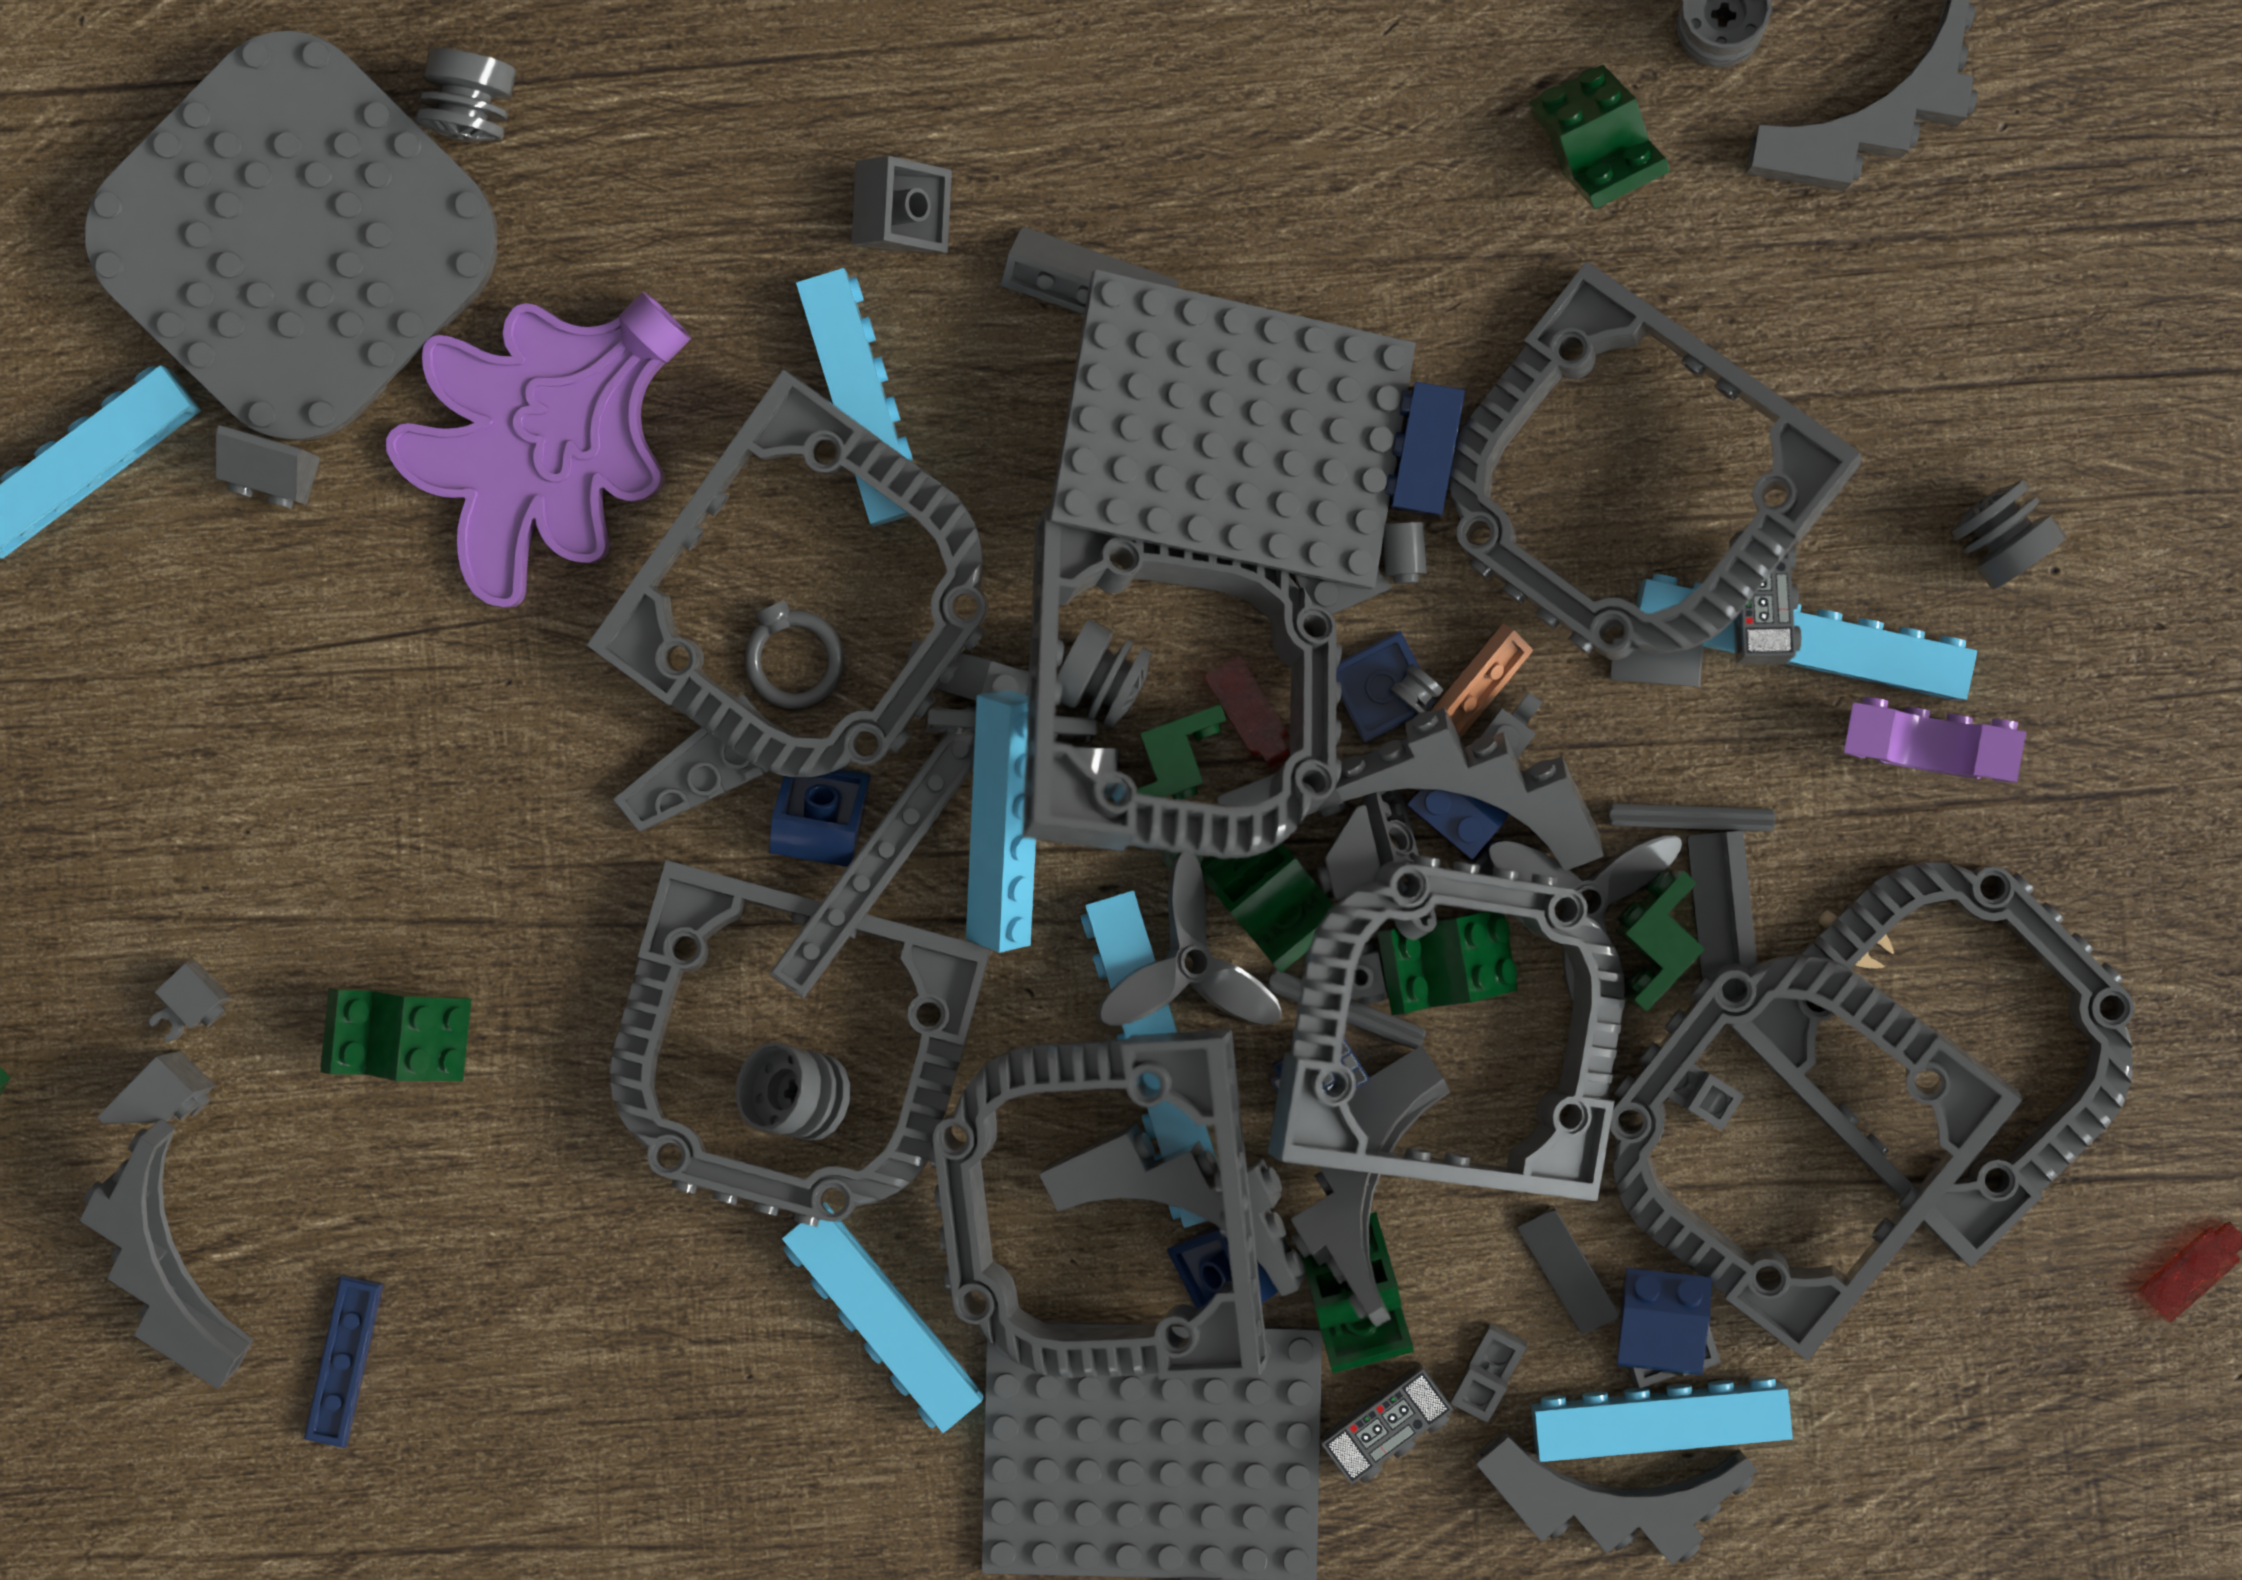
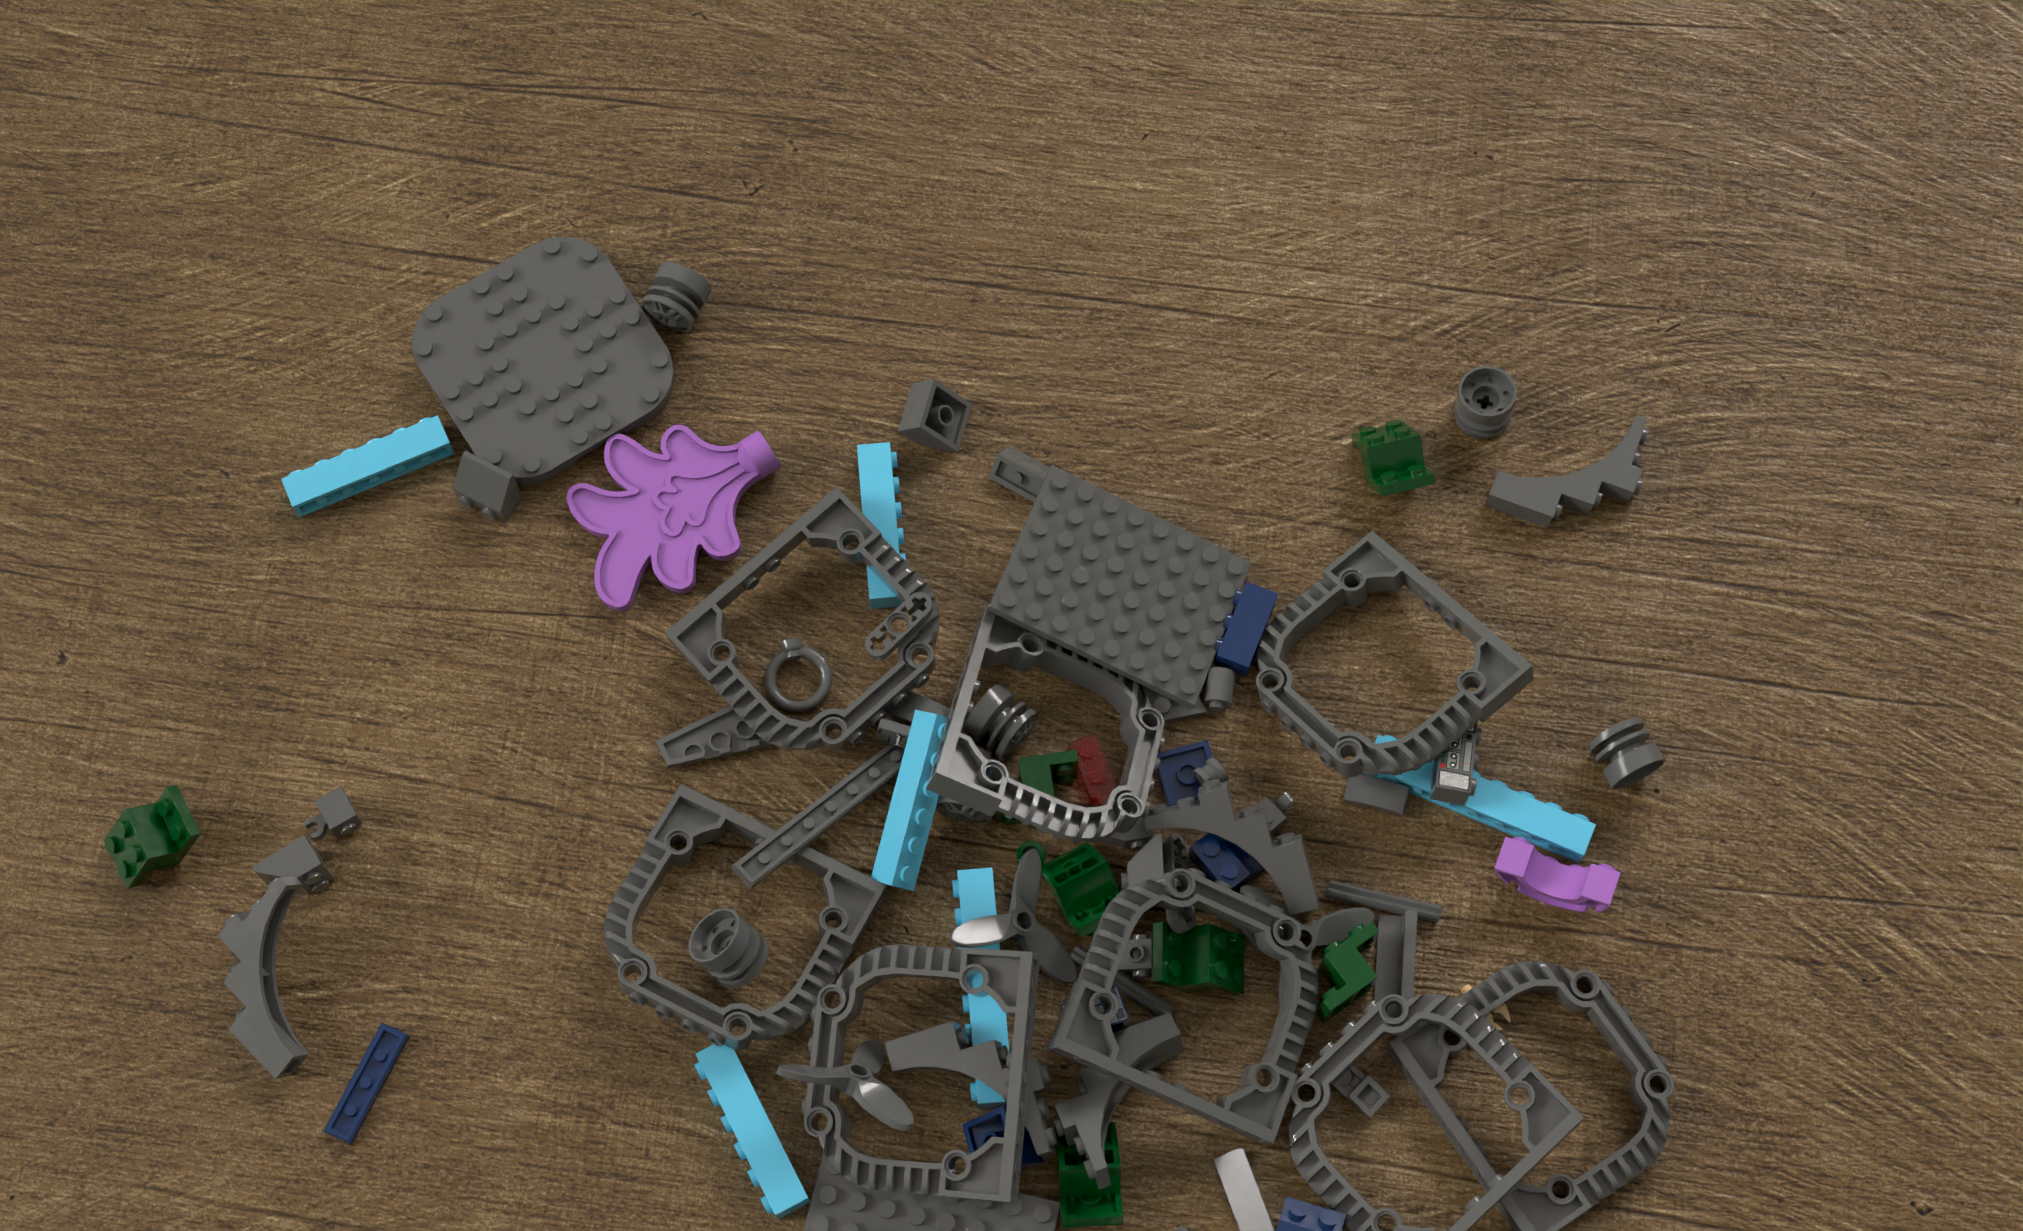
camera: 10 degrees right, 20 degrees down
(395, 1035) = (467, 862): dark green bracket -> none
(820, 817) = (790, 779): dark blue slope -> none
(934, 539) = (879, 635): none -> dark grey beam
(1016, 1248) = (860, 1082): none -> dark grey piece
(1484, 678) = (1259, 779): nougat plate -> none

